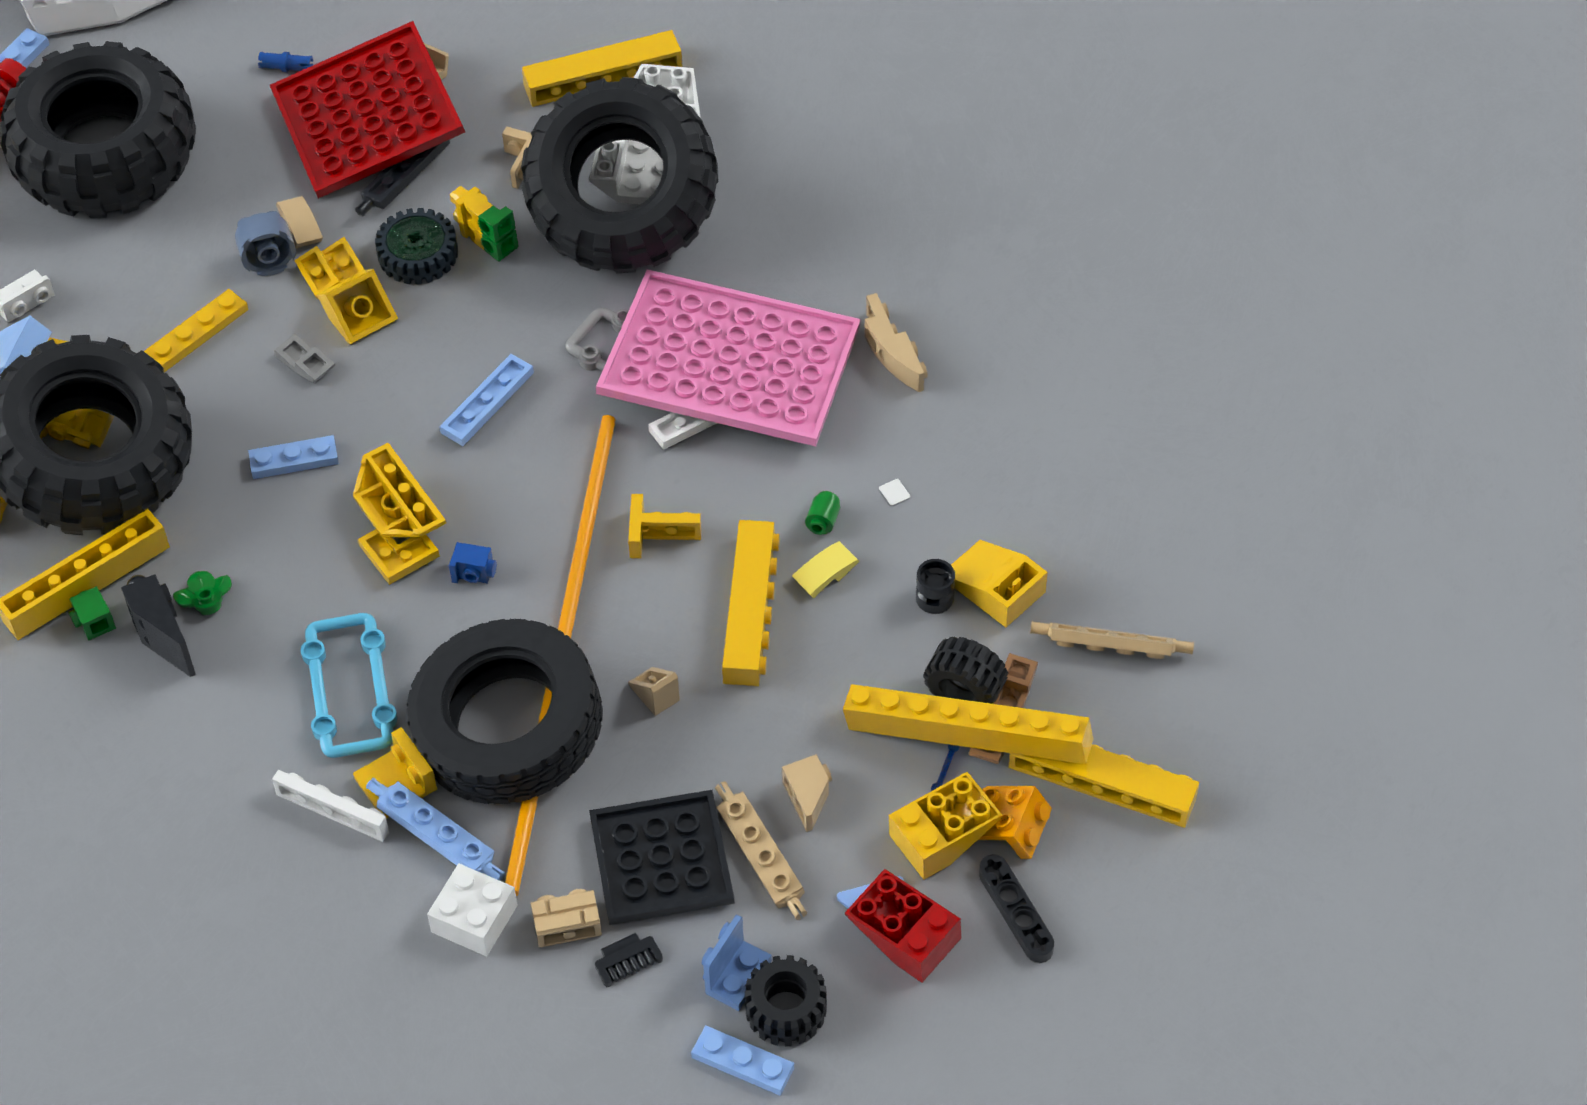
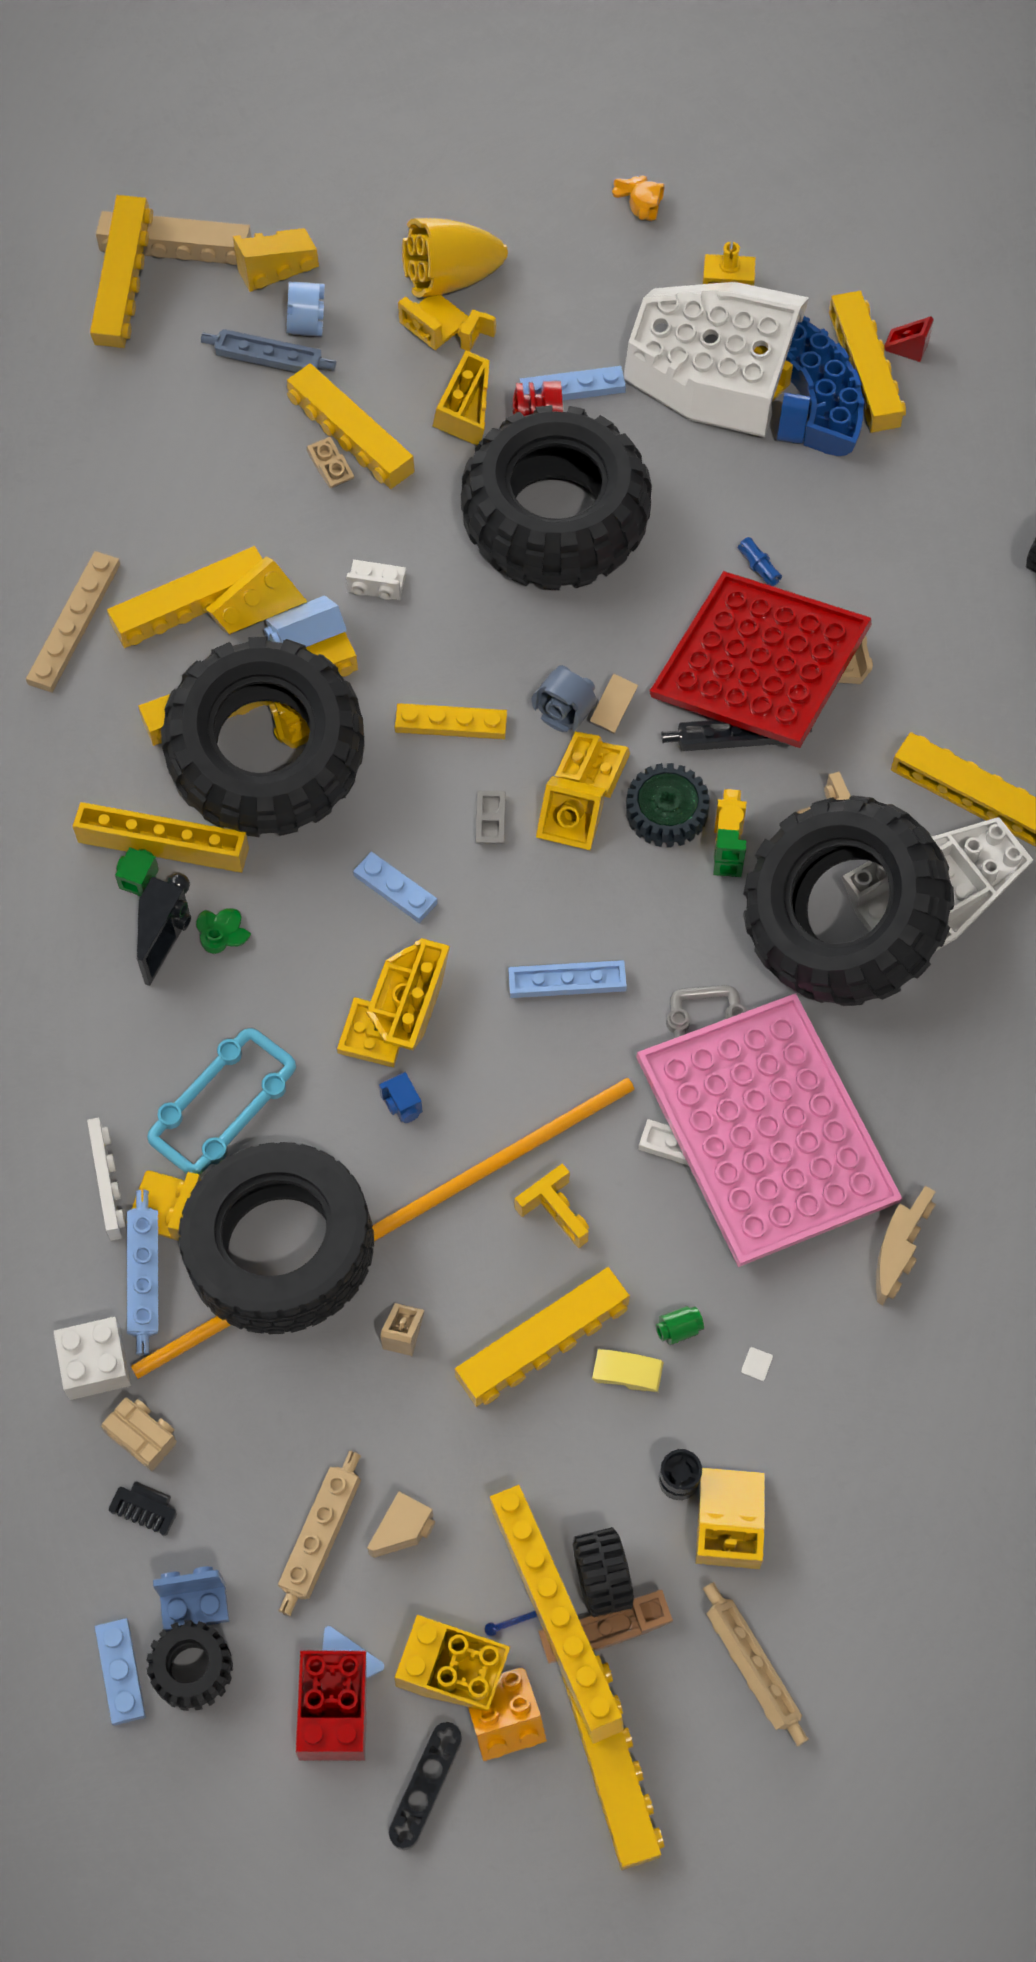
camera: 50 degrees right, 10 degrees up
(661, 857) = (251, 1461): black plate -> none

